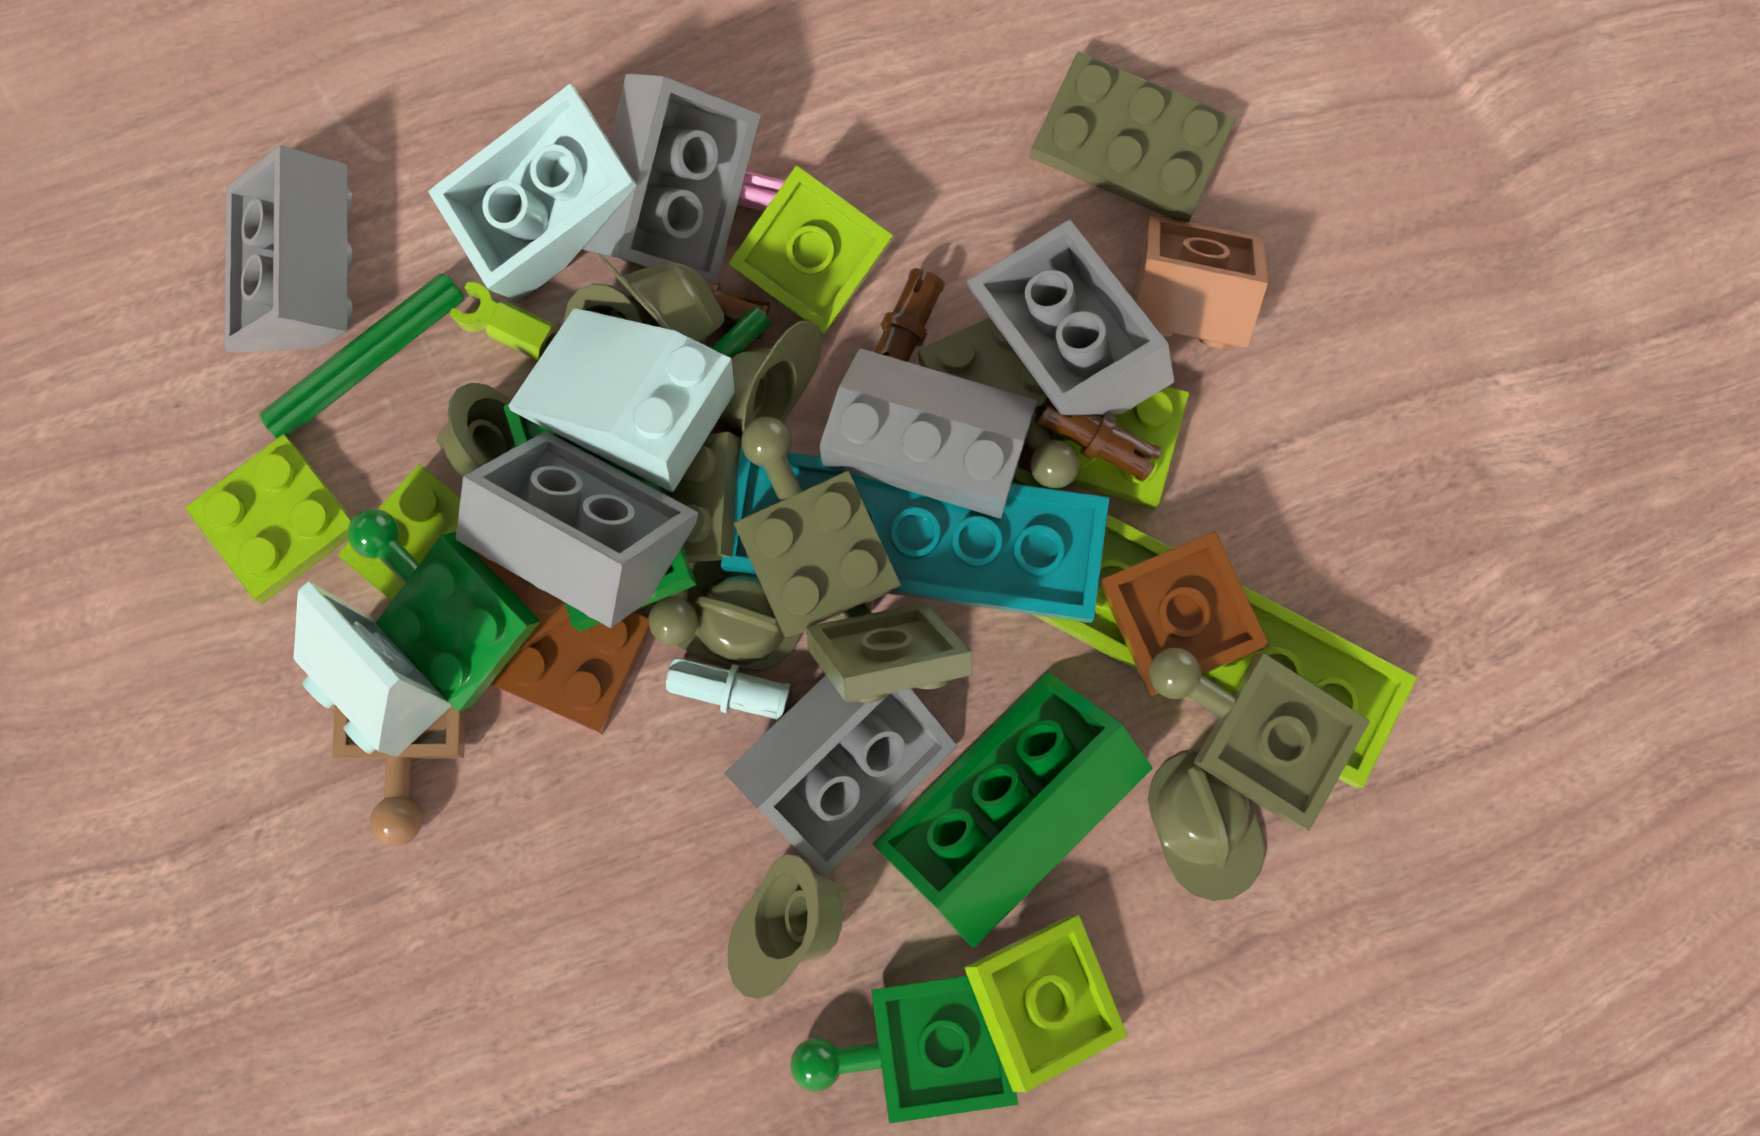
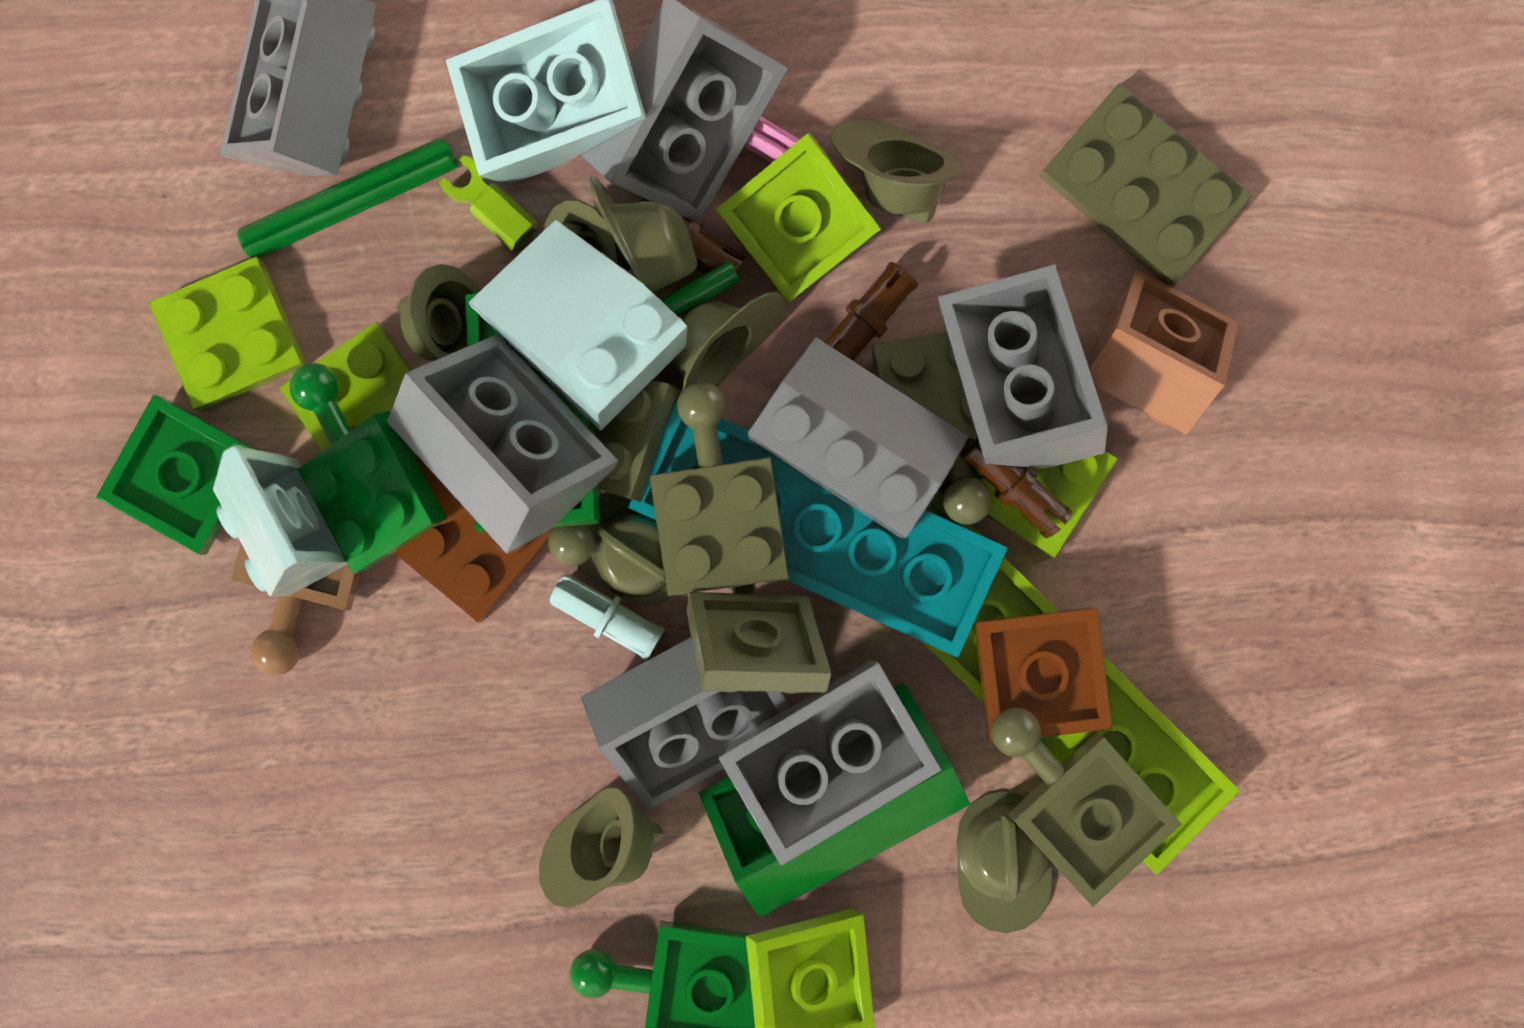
camera: 20 degrees right, 10 degrees up
(246, 672) = (170, 474): none -> green plate
(894, 184) = (897, 167): none -> olive piece
(994, 757) = (828, 761): none -> light grey slope

